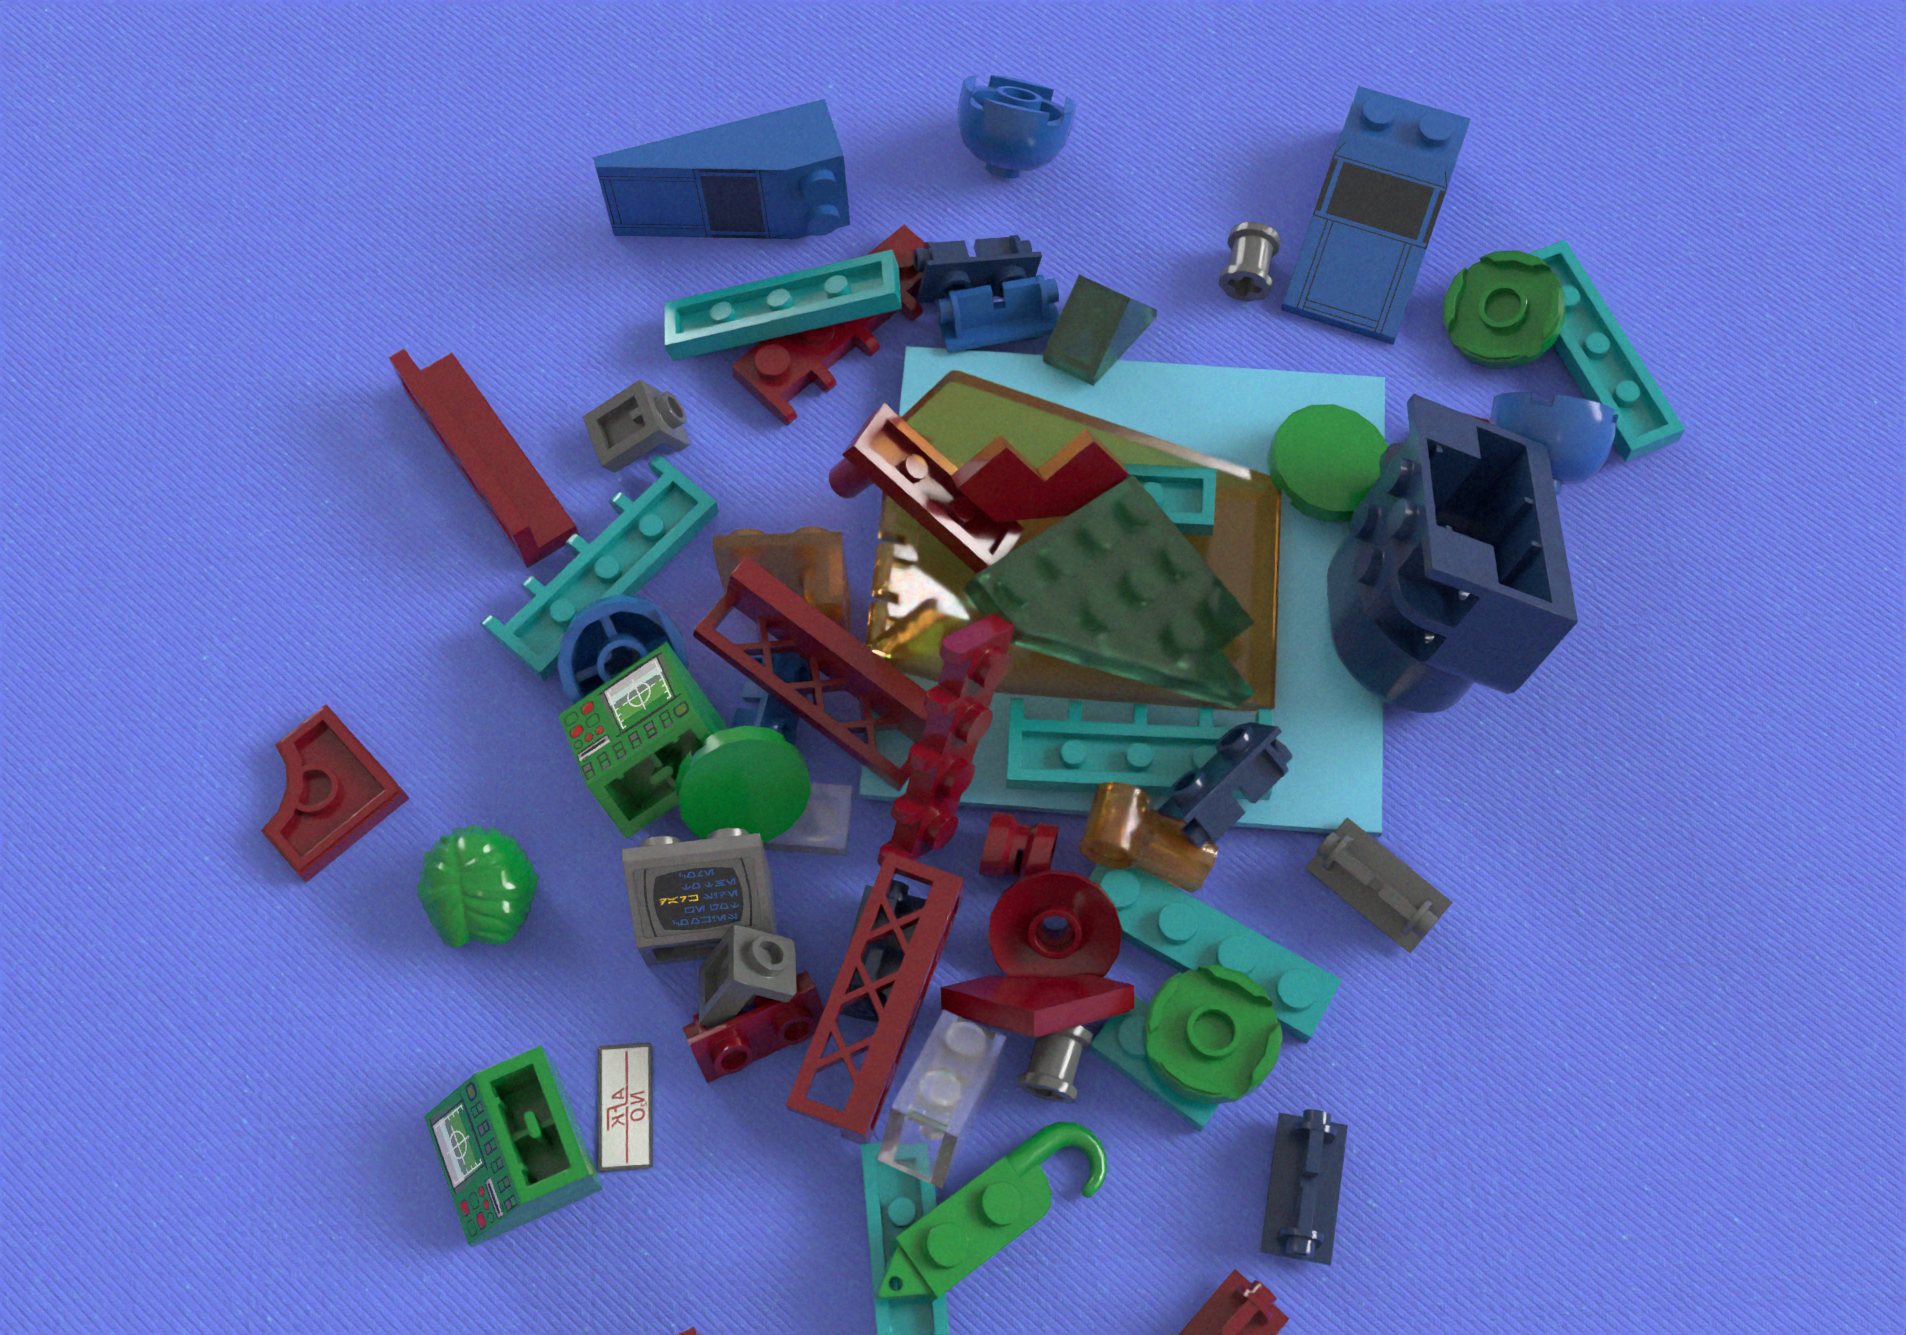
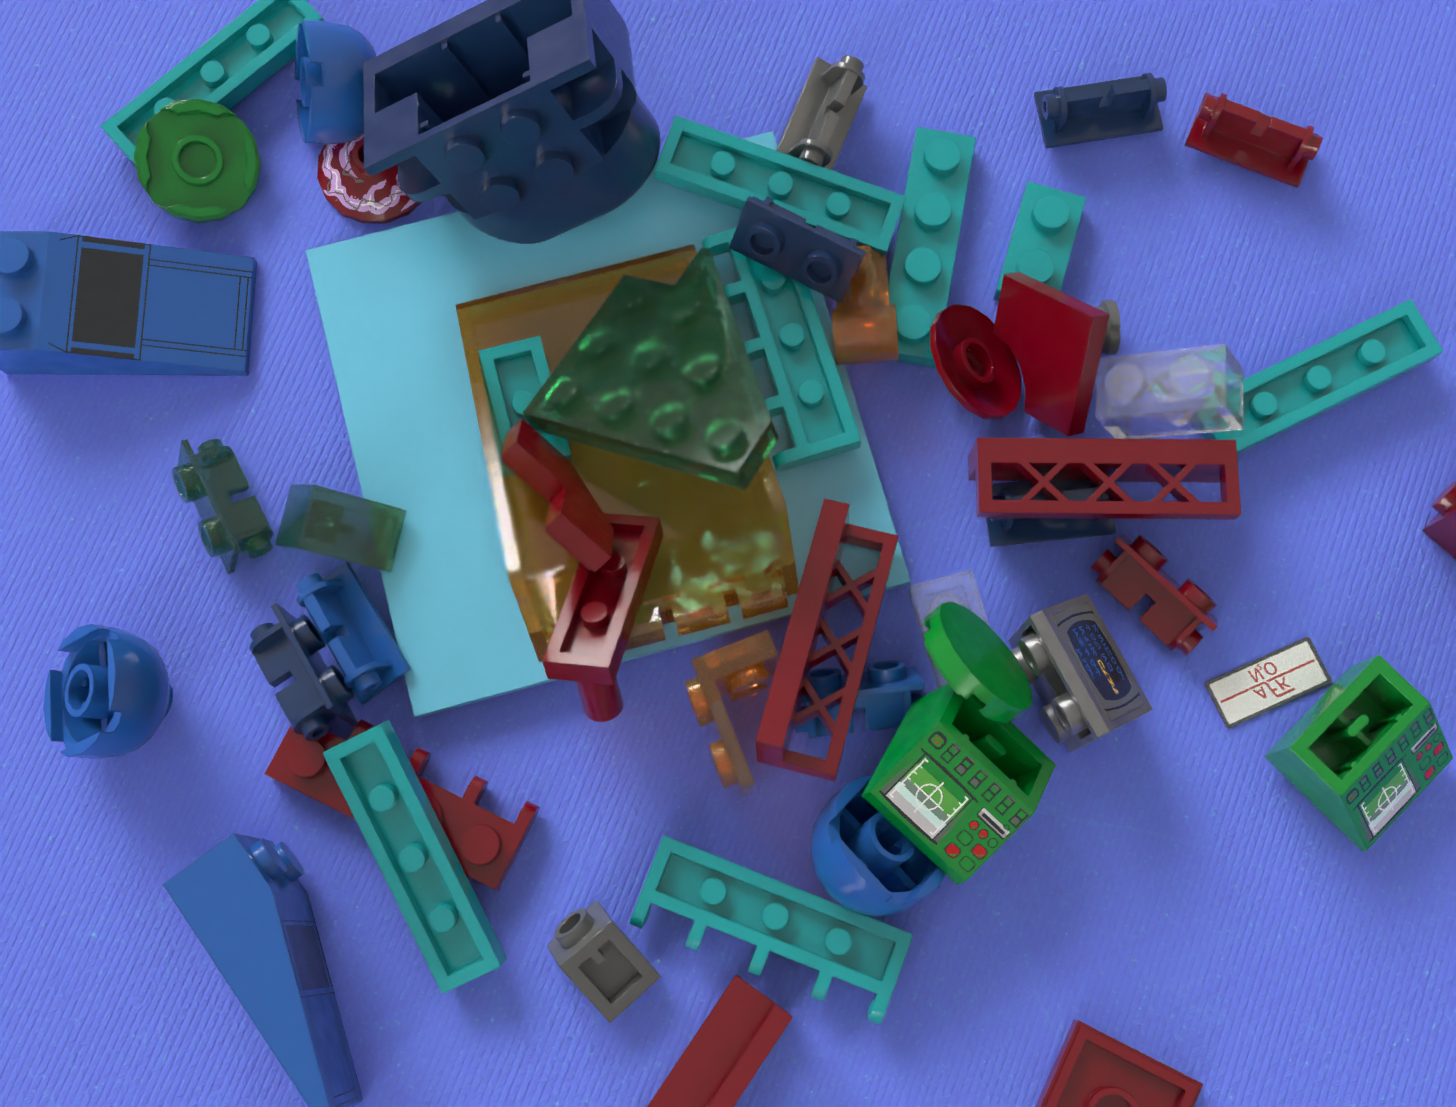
camera: 110 degrees left, 10 degrees up
(476, 886) = (1145, 898): green hair -> none
(745, 966) = (1133, 604): dark grey bracket -> none
(956, 722) = (877, 479): dark red hinge -> none
(985, 1215) = (1262, 342): green plate -> none
(1006, 840) = (910, 419): dark red wheel -> none
(1181, 245) = (225, 526): none -> hinge
(1212, 1034) = (1015, 205): green tile -> none
(1249, 263) = (208, 410): dark grey bush -> none
(1307, 808) = (735, 168): none -> teal plate
(1326, 460) = (425, 263): green tile -> none

